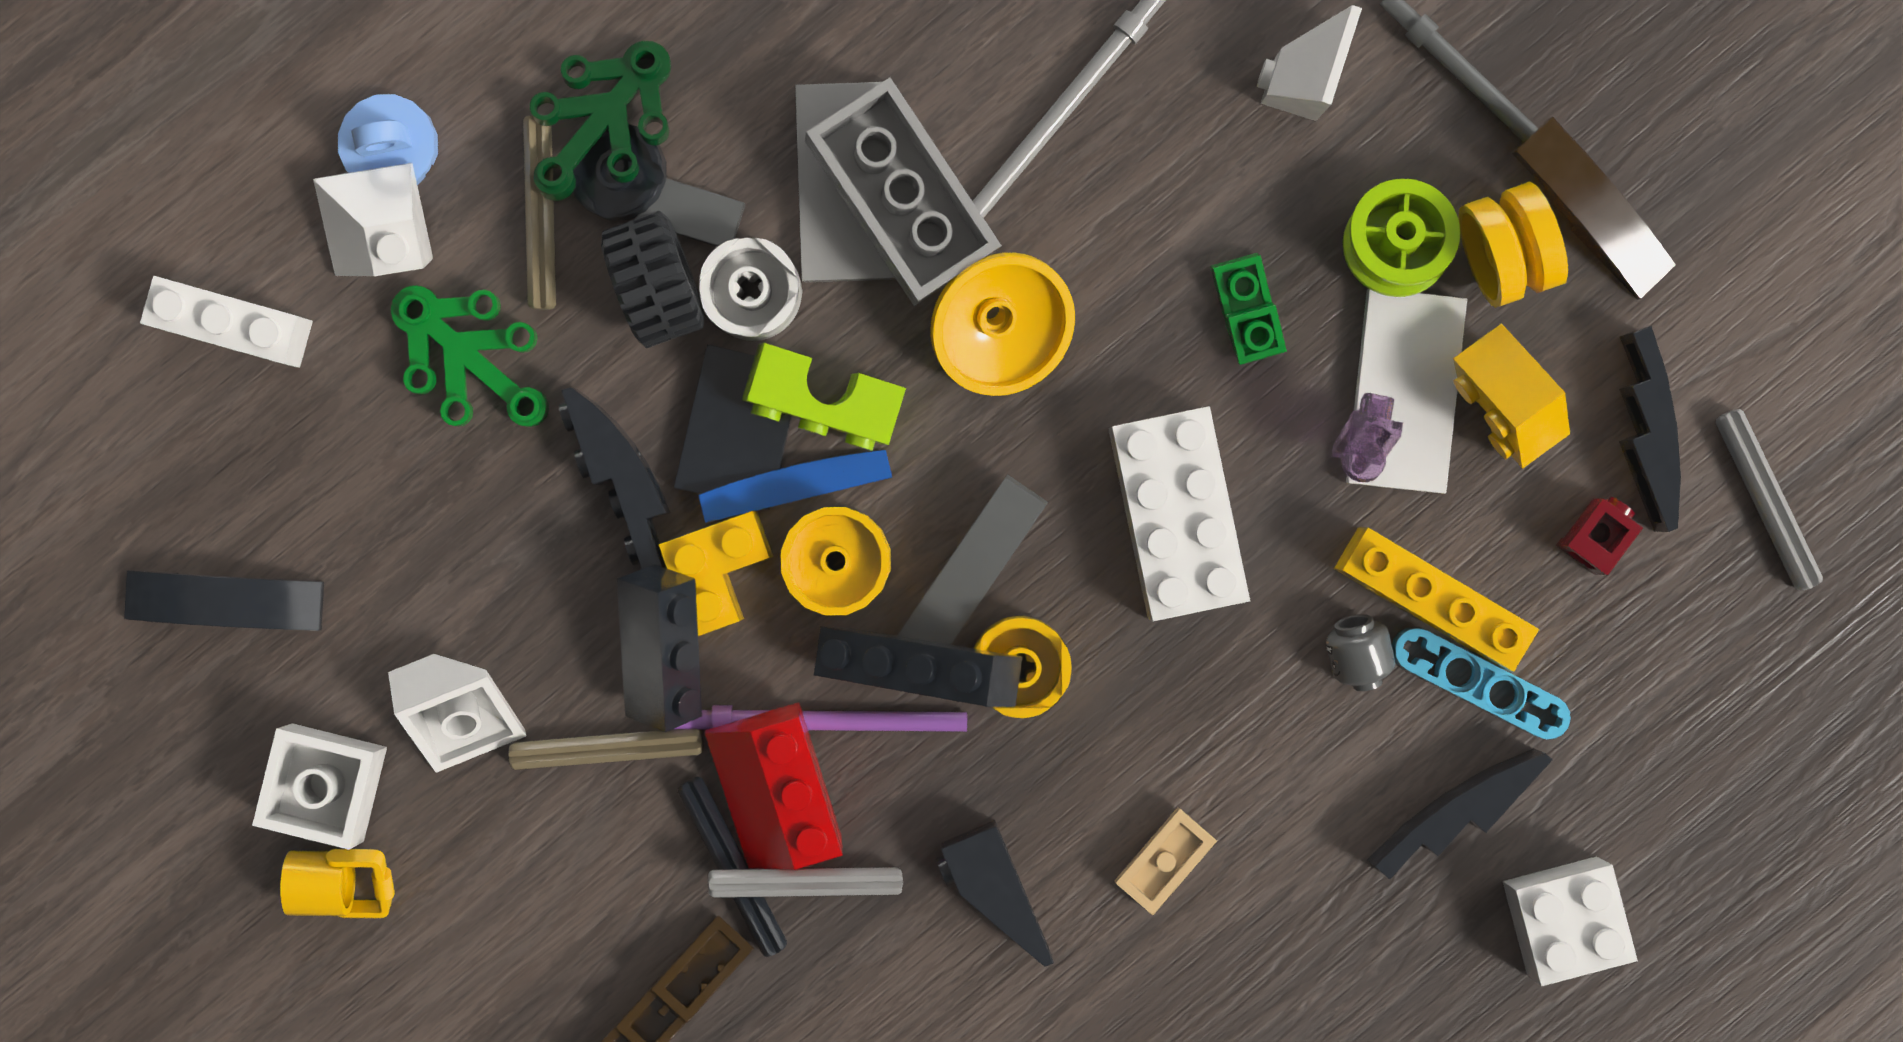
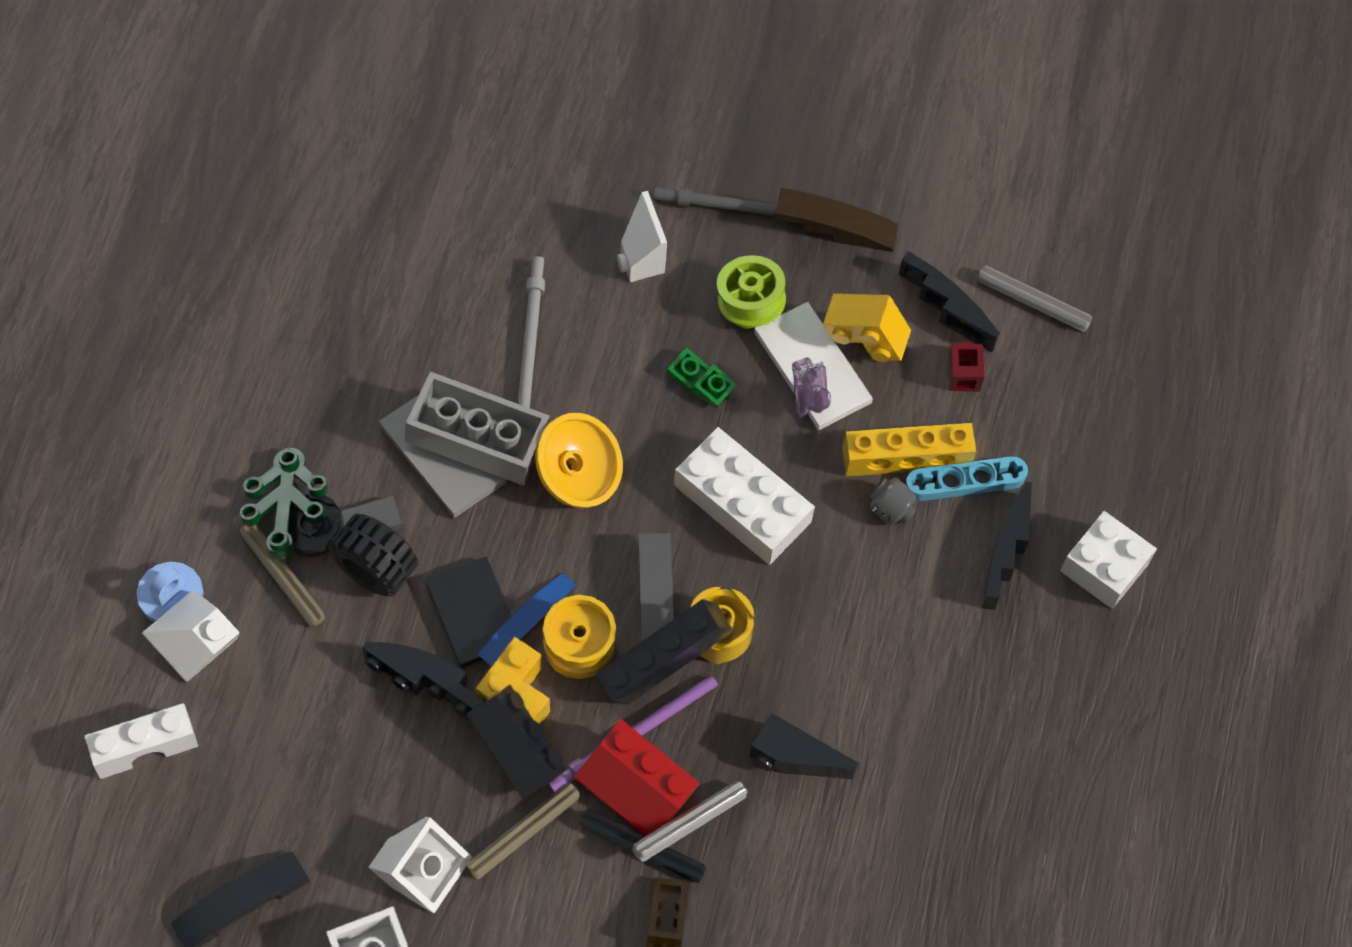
camera: 40 degrees left, 25 degrees down
(462, 351) = (290, 671): green plant -> none
(750, 260) = (436, 514): white brick -> none
(780, 386) = (484, 567): lime arch -> none
(1165, 861) = (876, 676): tan plate -> none
(1513, 244) = (810, 256): yellow wheel -> none

